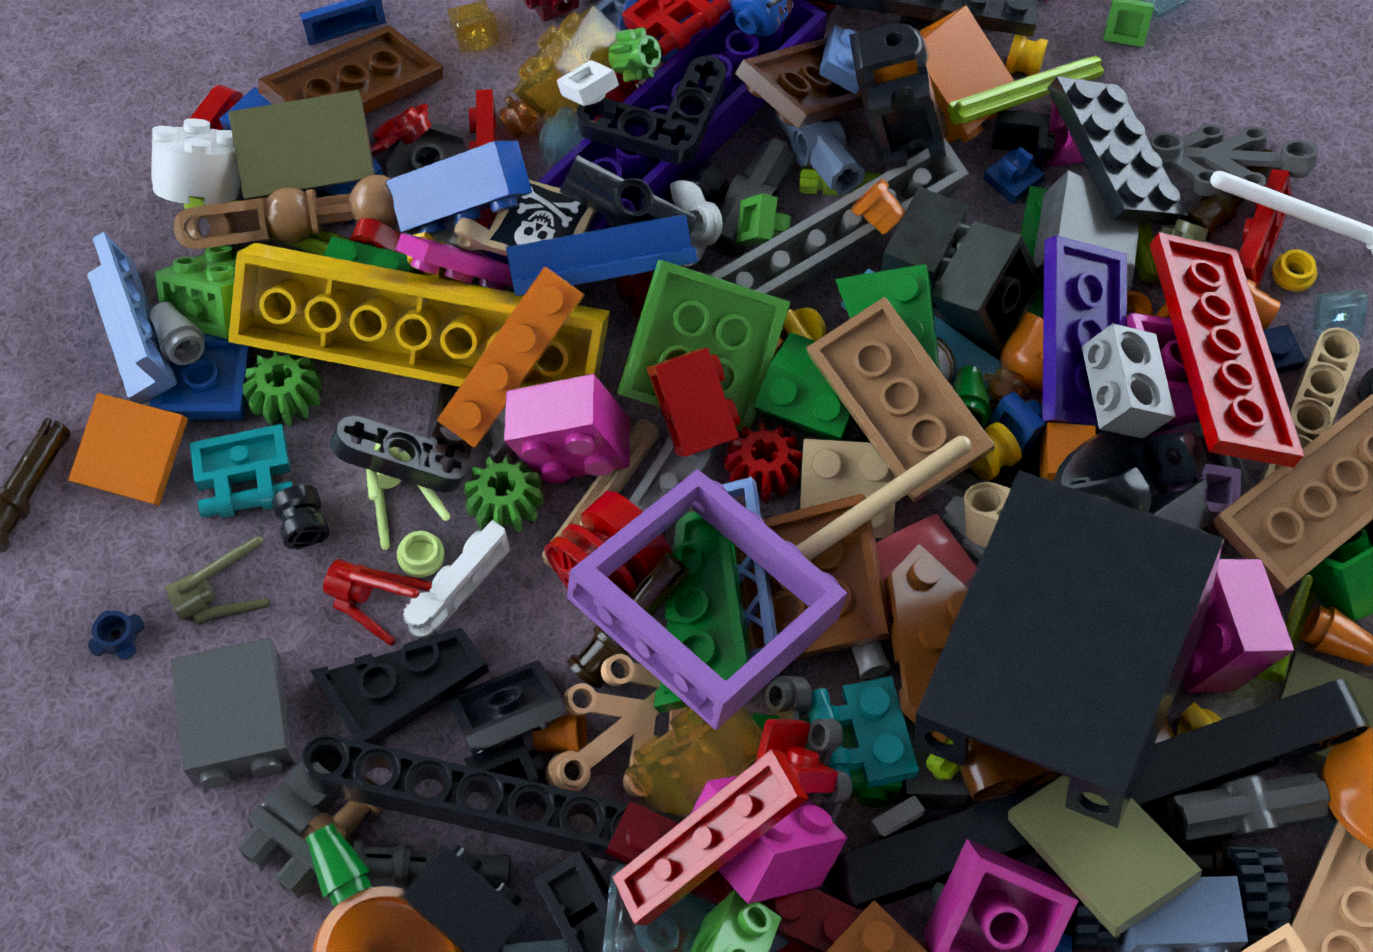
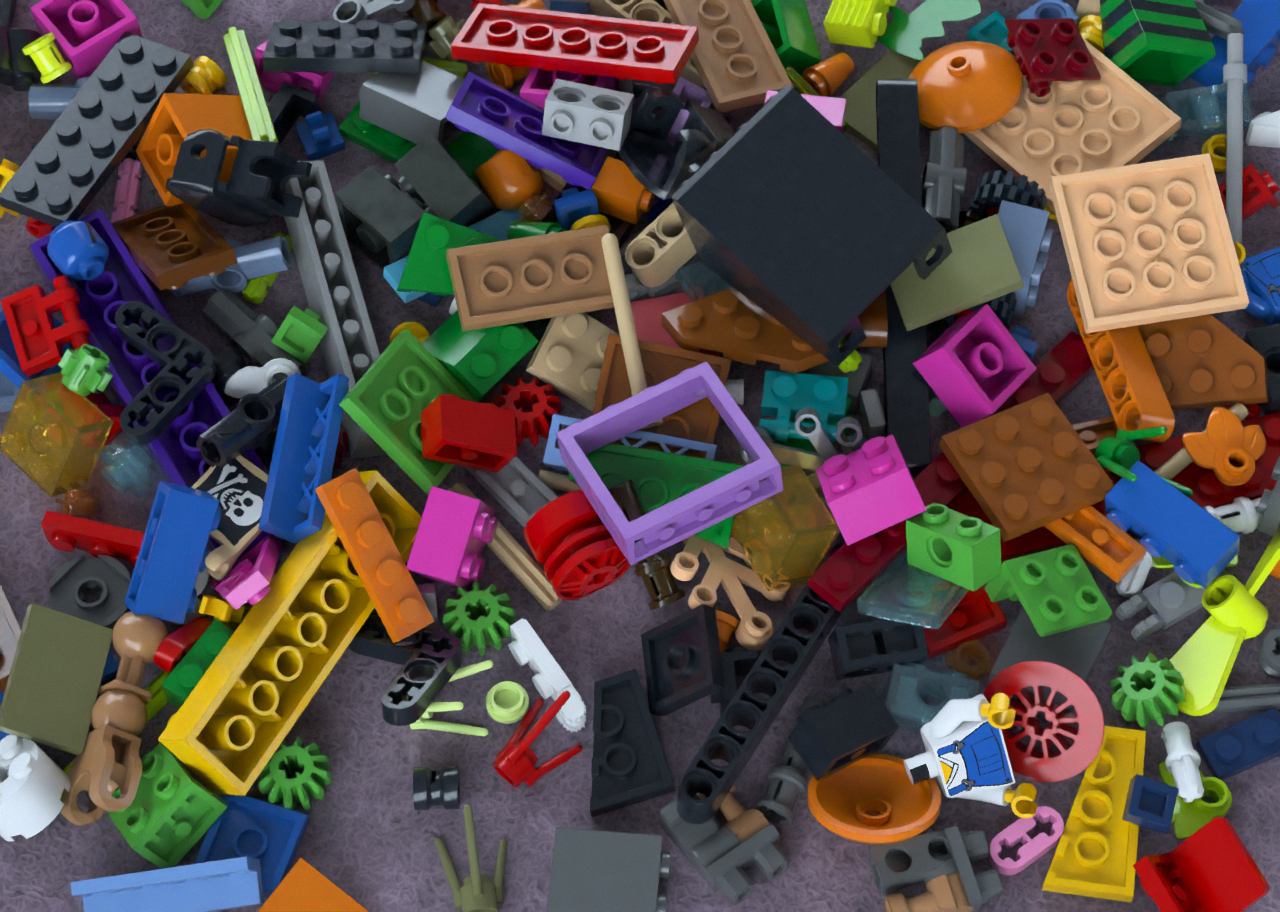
camera: 70 degrees left, 0 degrees up
(177, 336) = (208, 844): light grey cone -> none
(239, 459) = (353, 829): teal plate -> none
(337, 865) = (785, 812): green cone -> none
(406, 126) = (52, 589): red plate -> none
(587, 83) = (111, 411): white plate -> none
(709, 837) = (877, 511): plate -> none
(791, 739) = (828, 449): red bracket -> none
(837, 59) = (152, 213): medium blue plate -> none
(879, 207) = (337, 233): orange piece -> none

